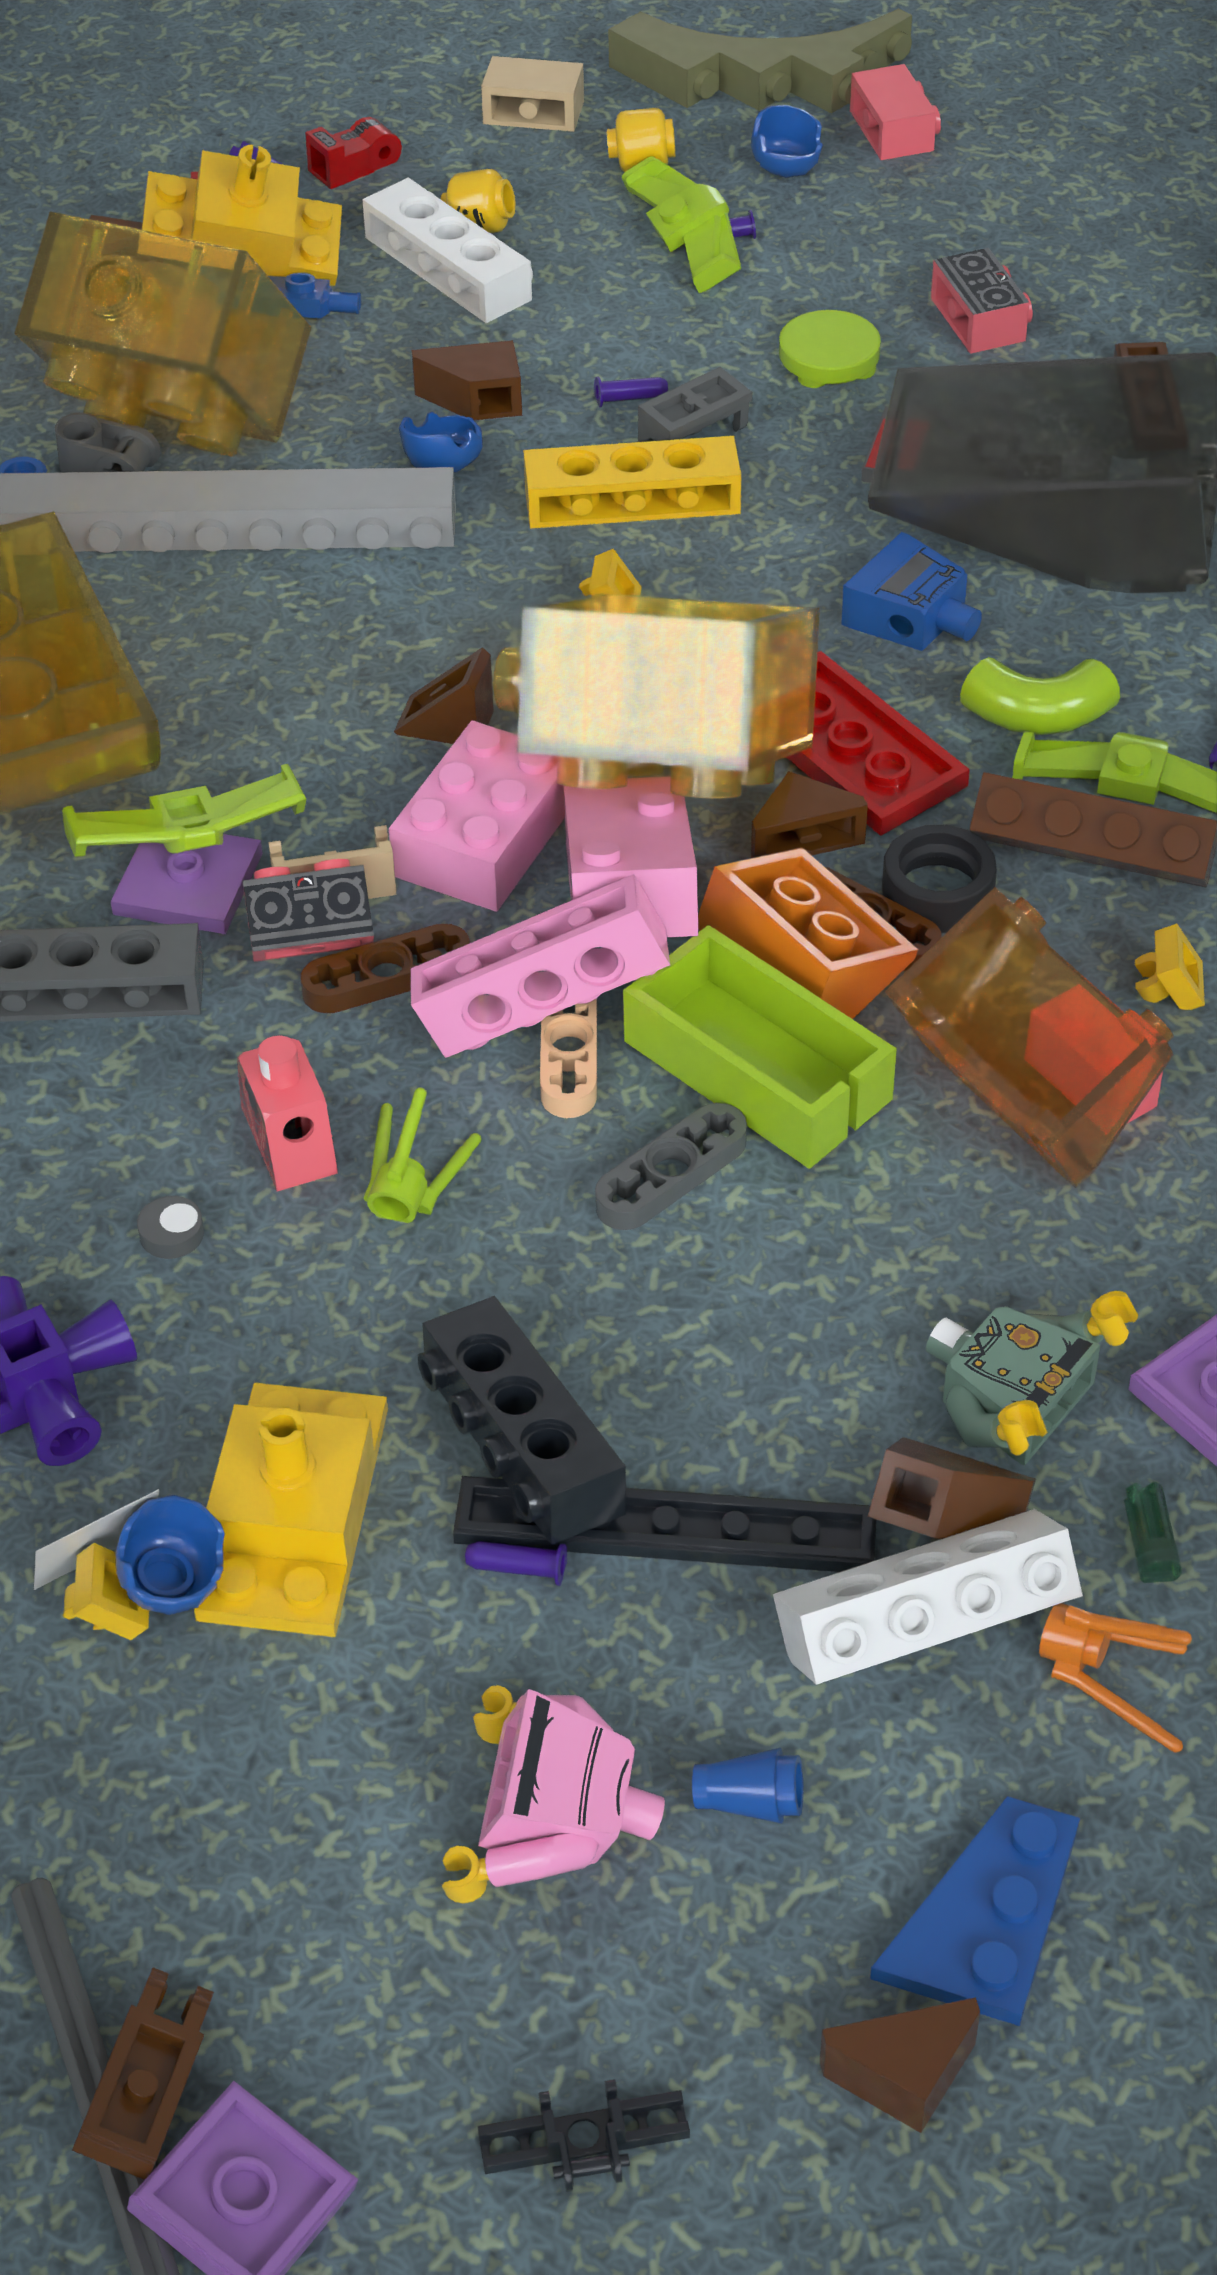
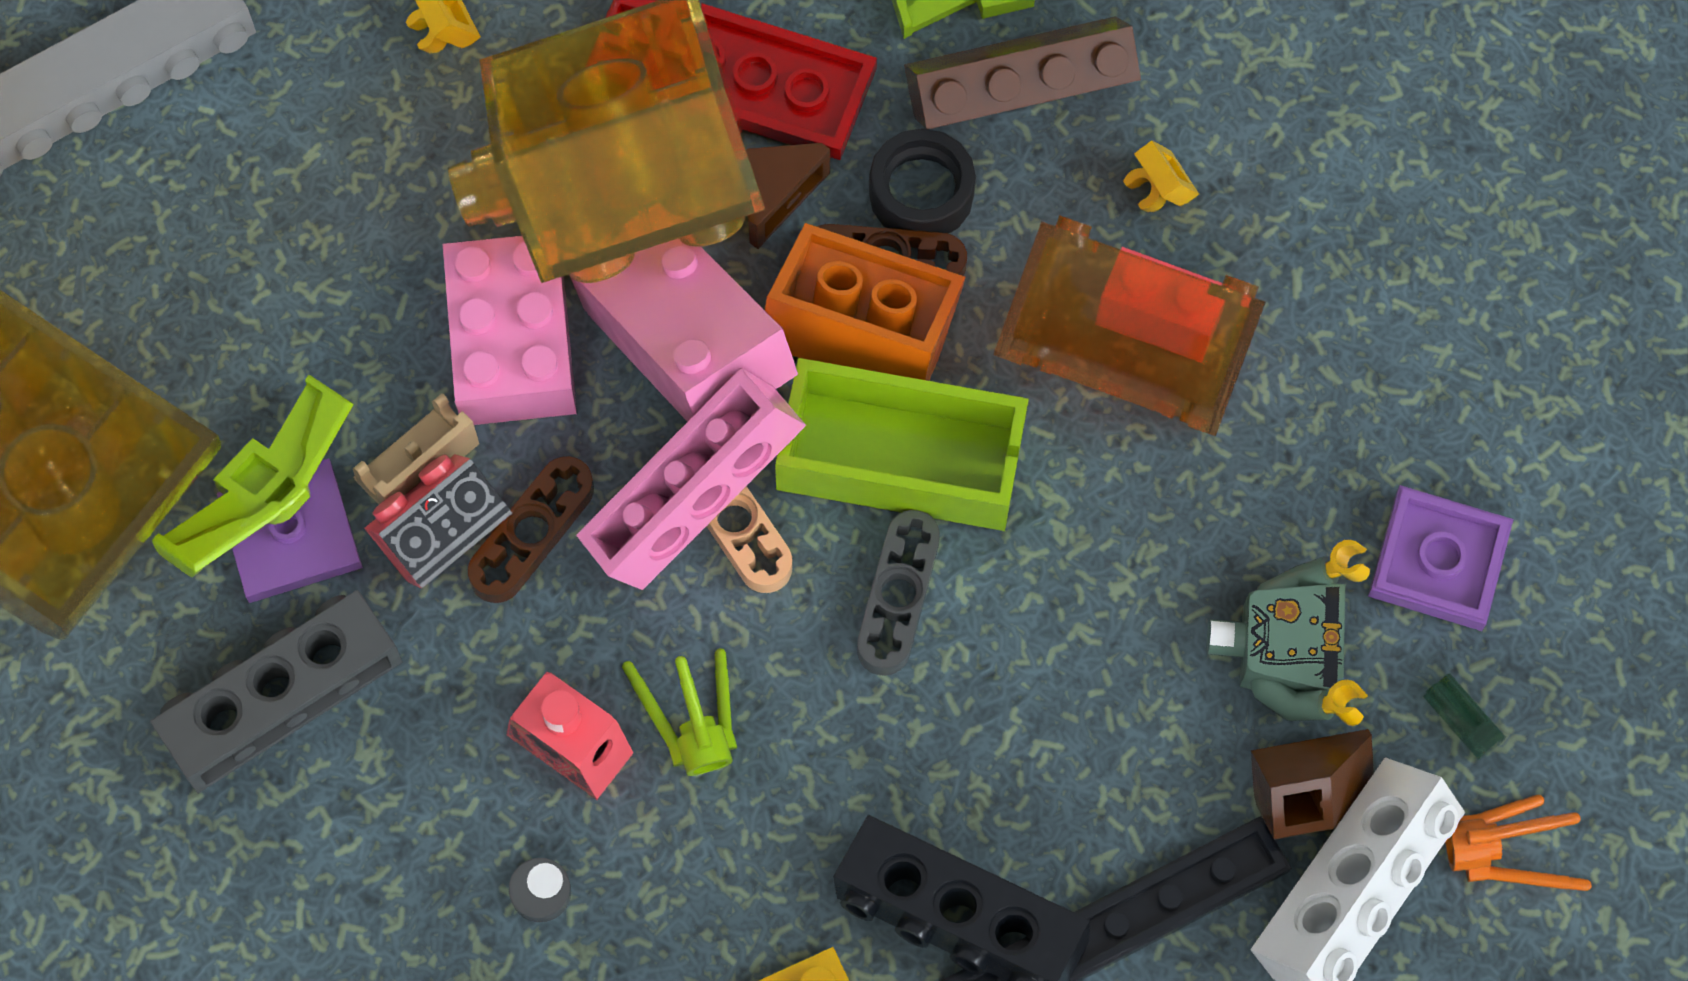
camera: 35 degrees left, 20 degrees up
(450, 701) = (389, 224): reddish brown slope -> none

